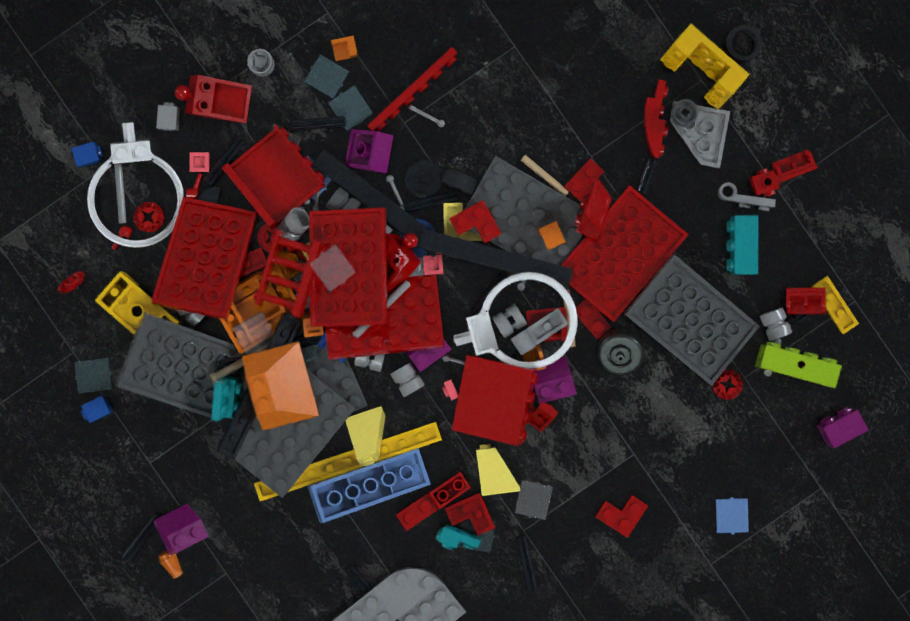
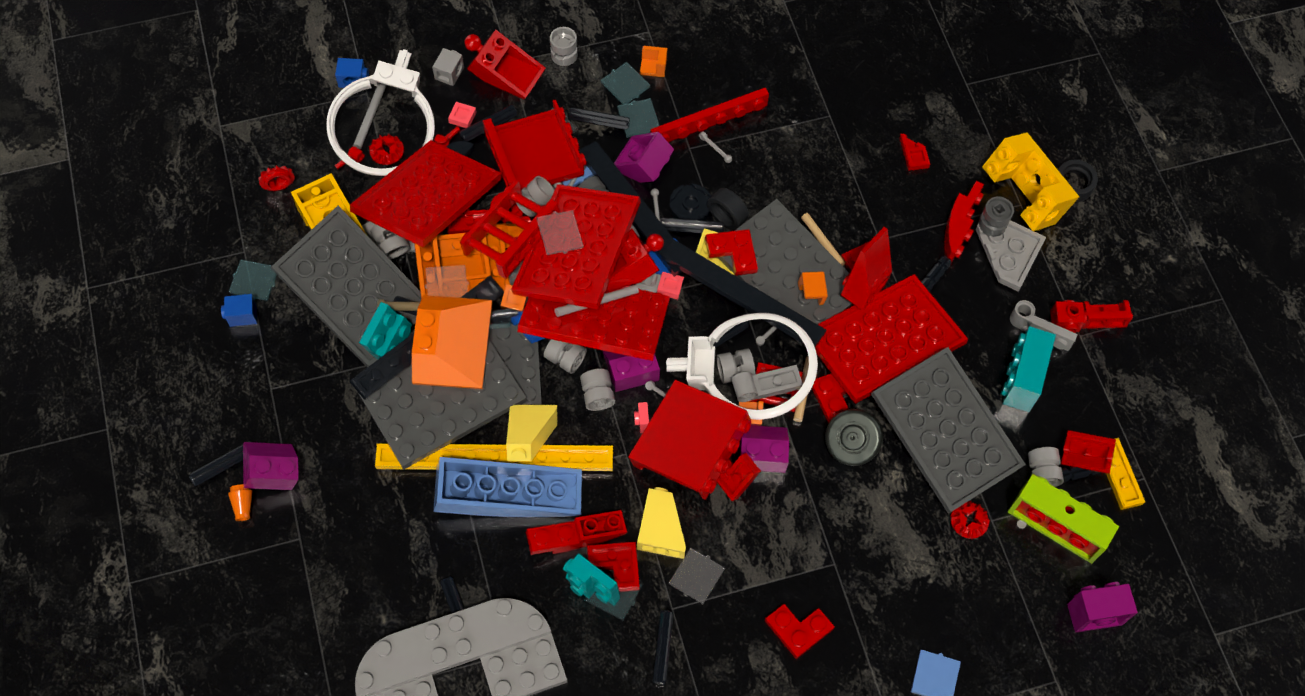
camera: 15 degrees right, 25 degrees down
(598, 61) = (914, 154): none -> red tile

